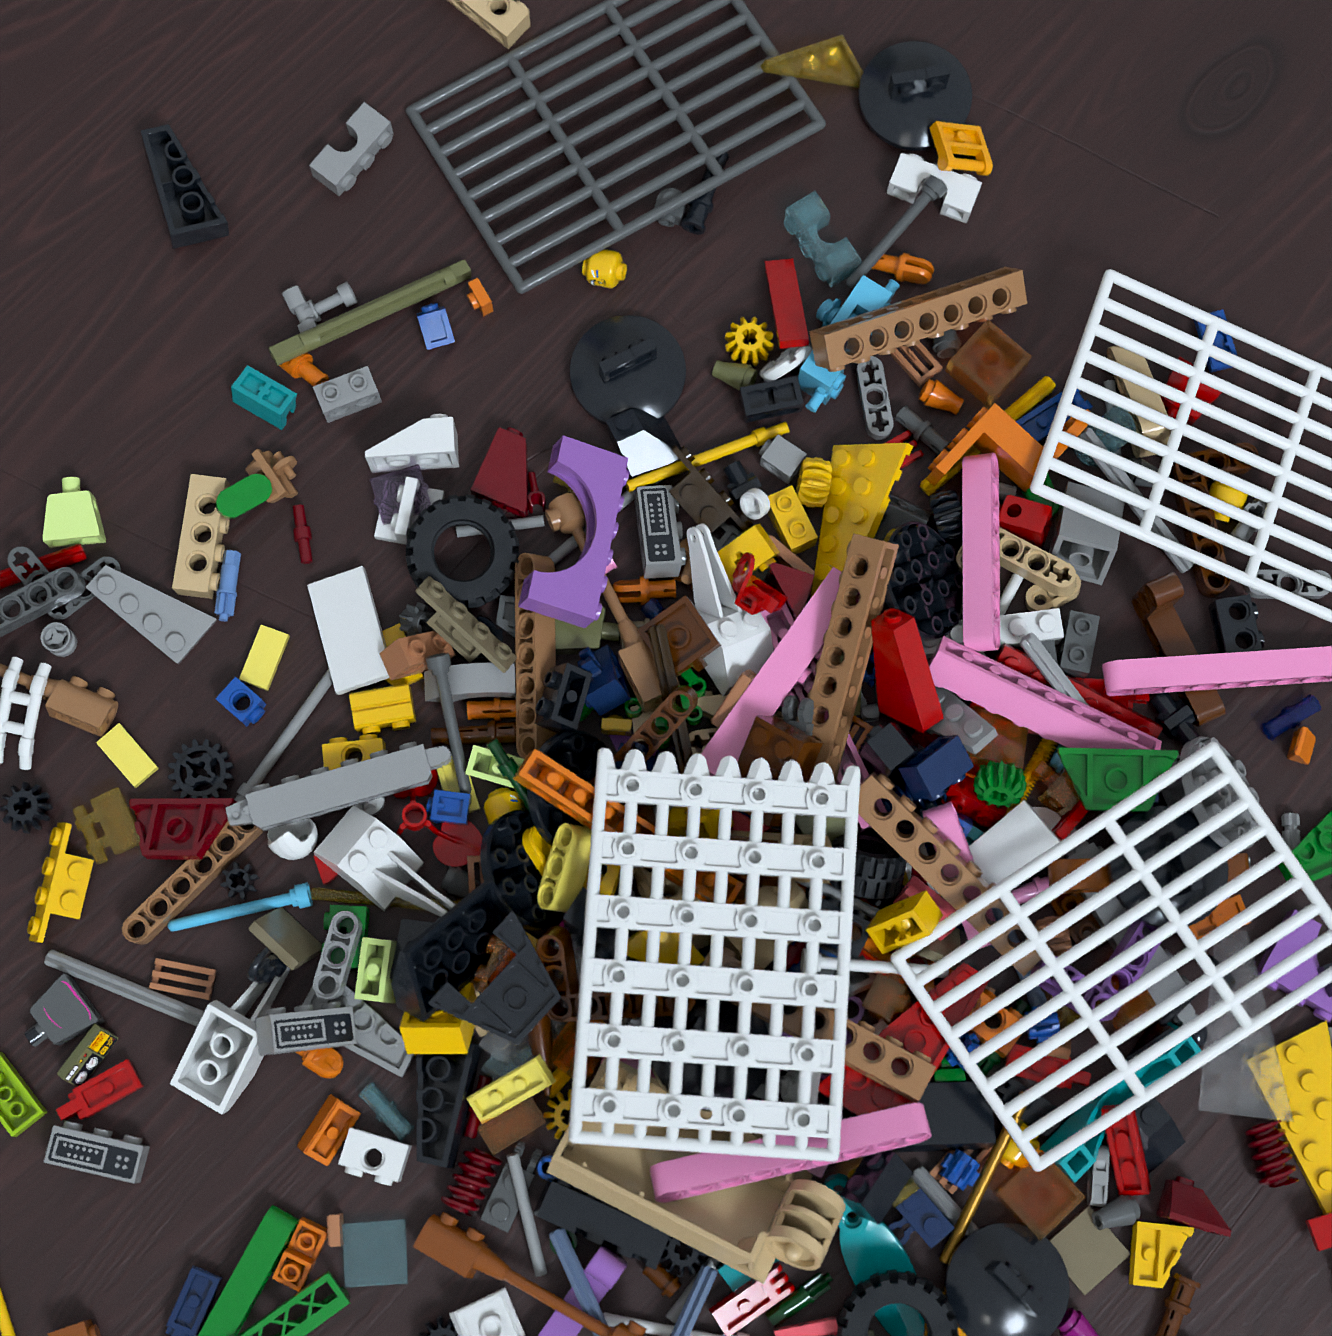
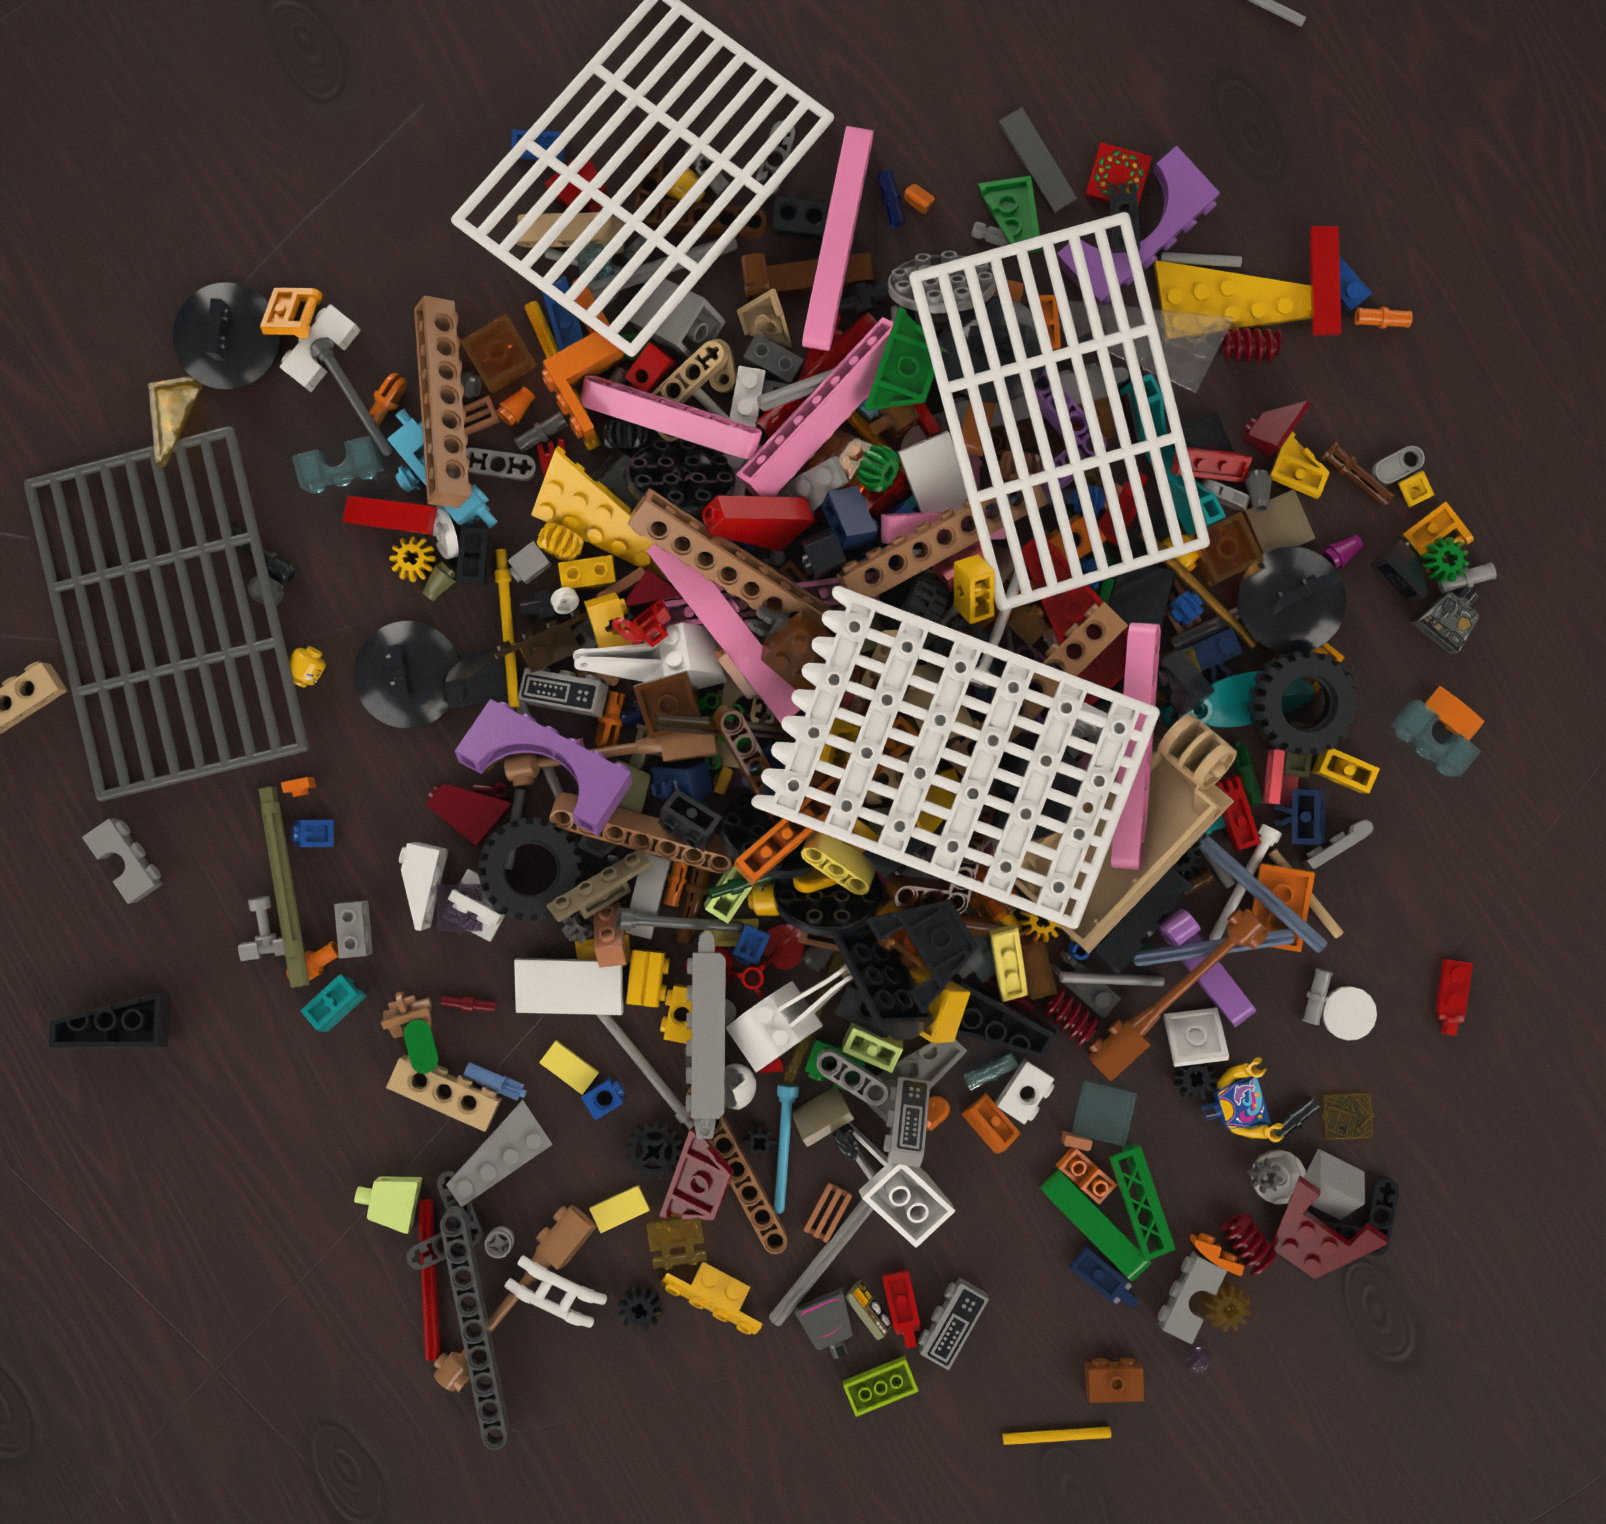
camera: 70 degrees left, 10 degrees up
(1118, 623) = (766, 318): none -> tan slope

